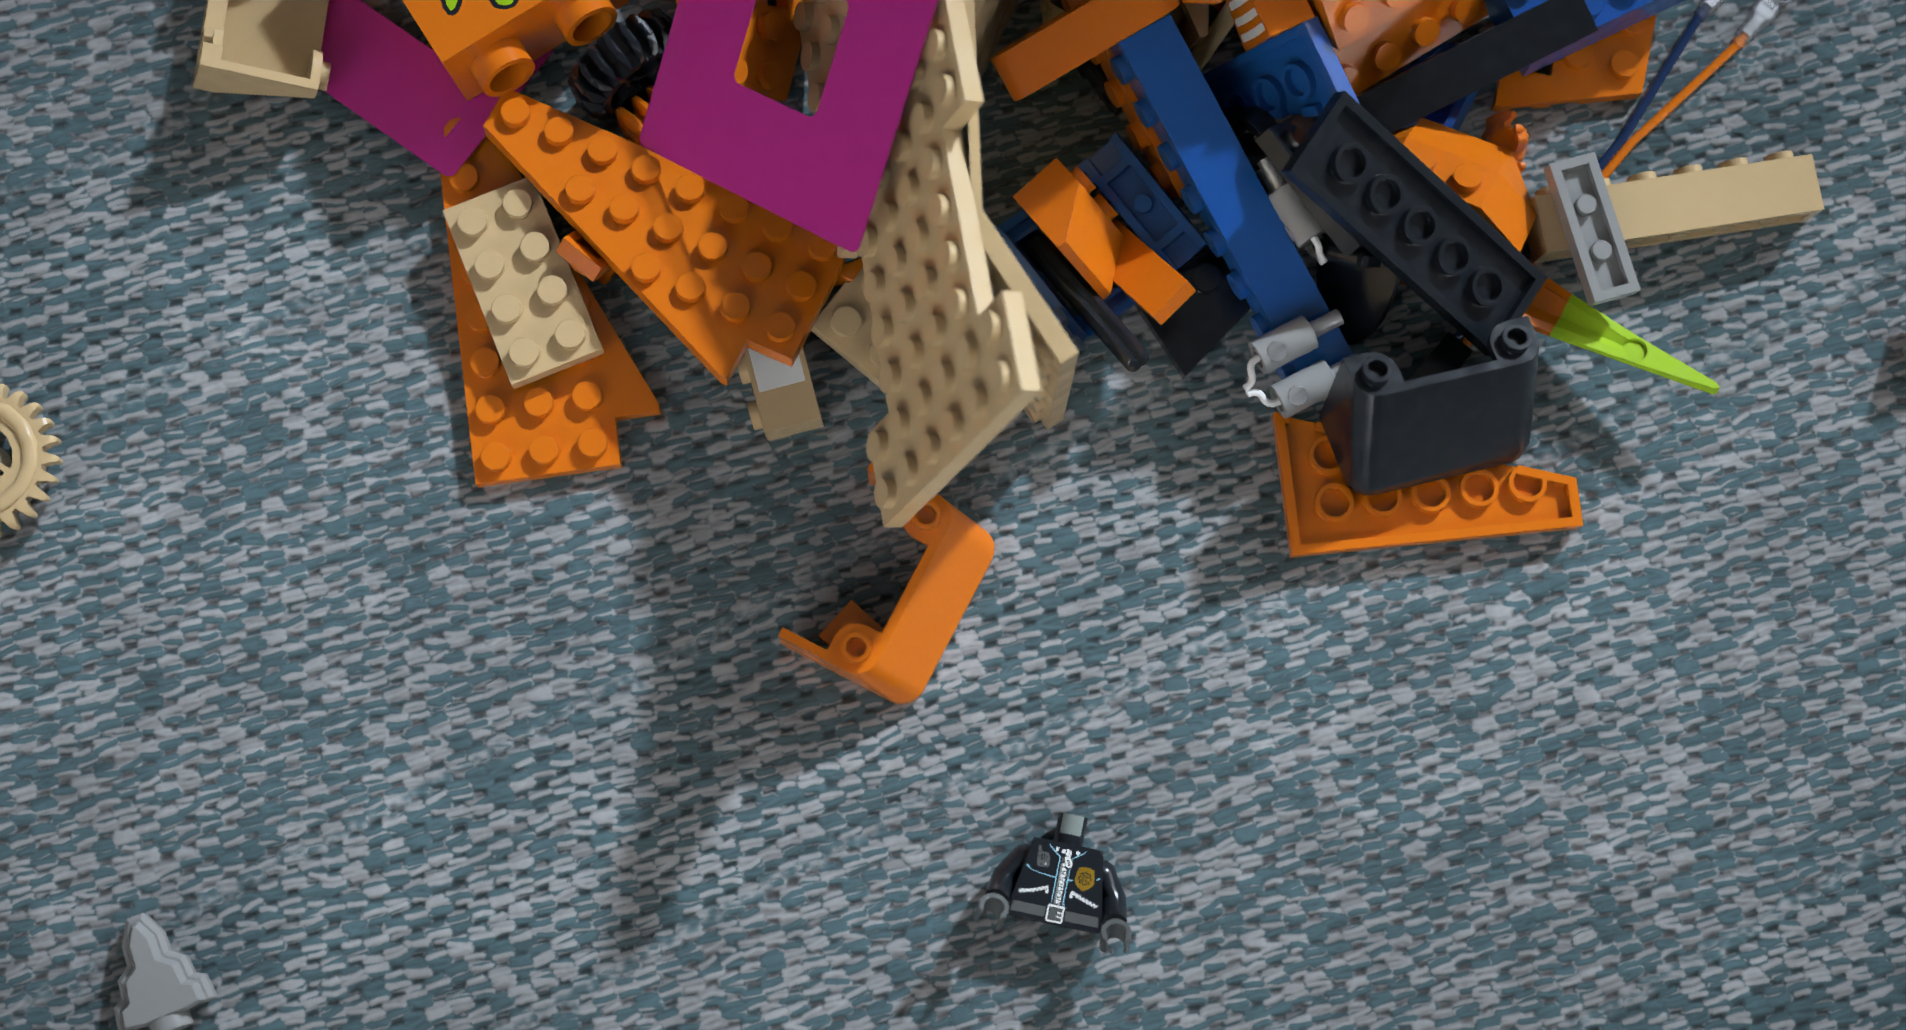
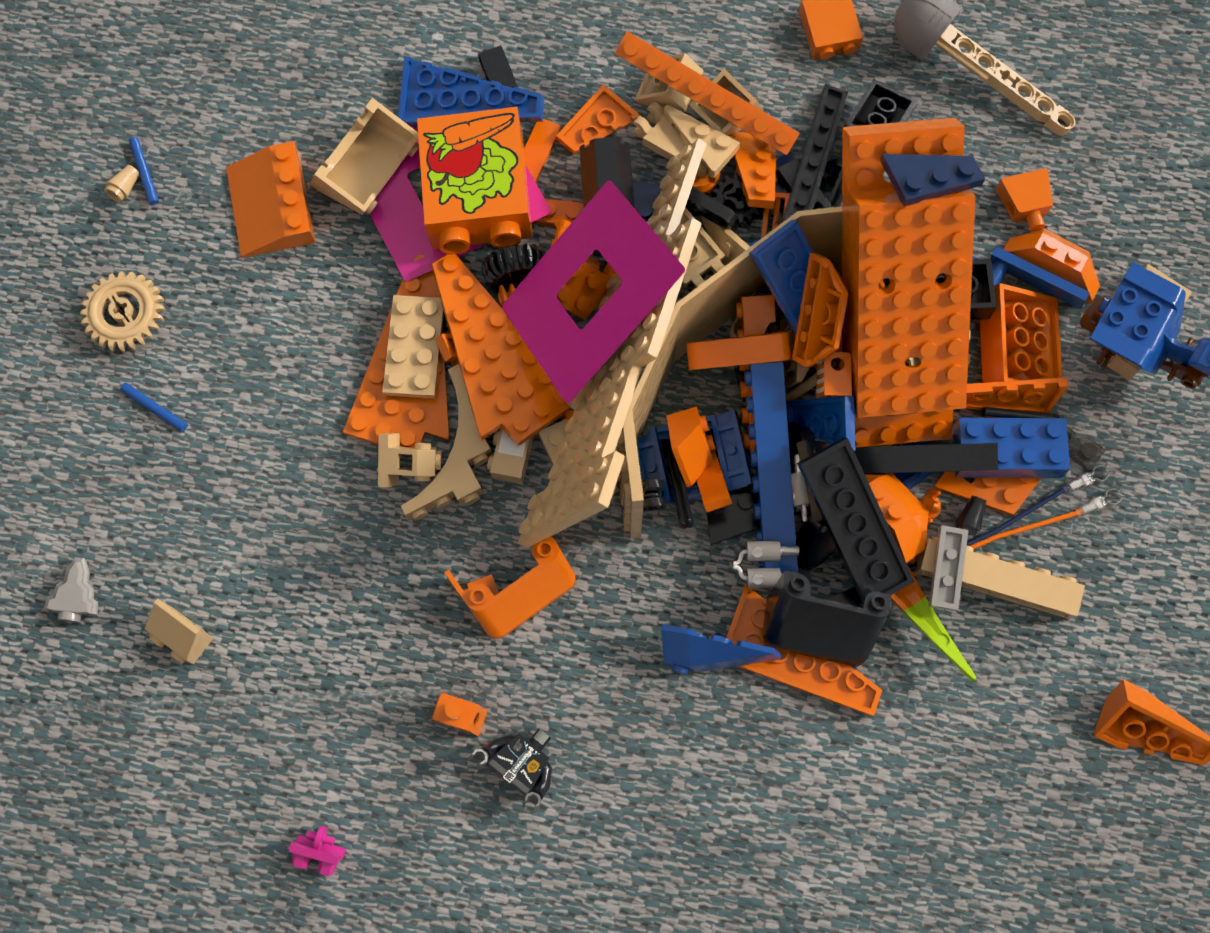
camera: 30 degrees right, 5 degrees down
(123, 599) = (153, 407): none -> blue bar
(136, 148) = (270, 201): none -> orange slope
(373, 957) = (176, 632): none -> tan slope
(646, 463) = (424, 460): none -> tan tile
(710, 465) = (456, 476): none -> tan arch
(915, 855) = (459, 714): none -> orange torso
(1252, 564) = (691, 651): none -> blue wedge
(1578, 126) = (972, 515): none -> black cone

